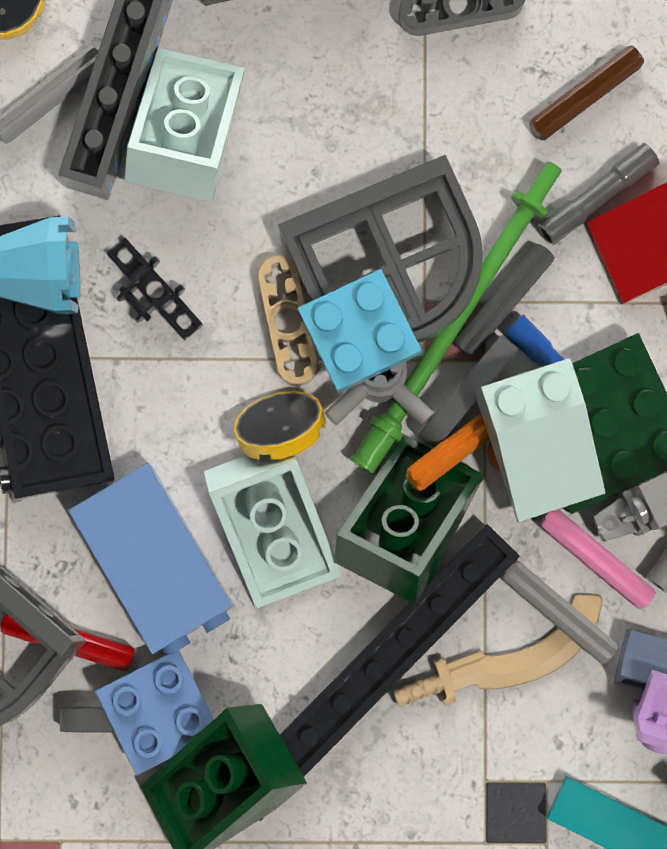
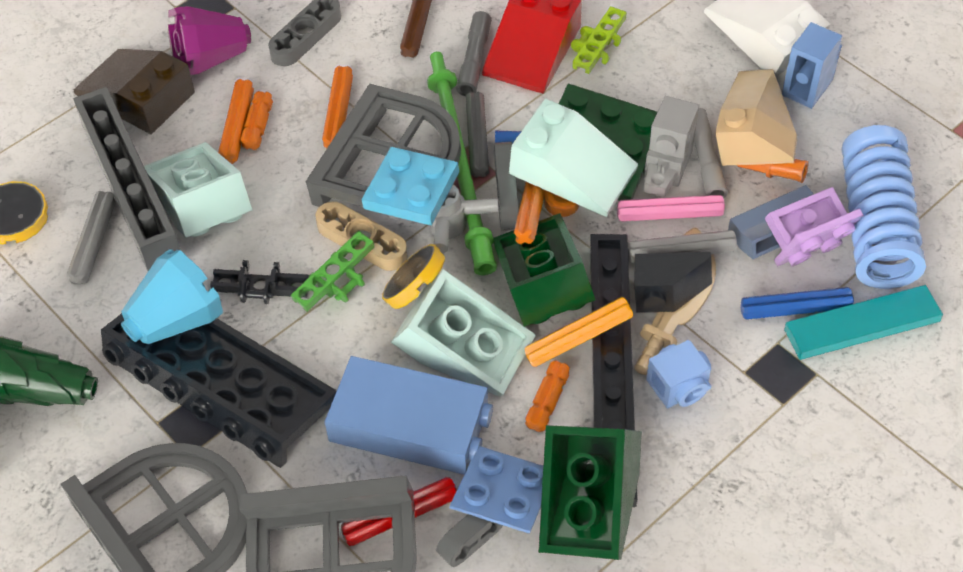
camera: 40 degrees left, 30 degrees down
(209, 354) = (328, 287): none -> bright green piece
(290, 648) = (547, 396): none -> orange axle
(293, 68) = (235, 120): none -> orange axle
(313, 85) = (256, 120): none -> orange axle
(370, 620) = (578, 332): none -> light orange axle
(404, 139) = (337, 103): none -> orange axle
(419, 741) = (679, 374): none -> light blue brick
(502, 641) = (670, 279): none -> black slope
(601, 765) = (795, 303): none -> blue axle

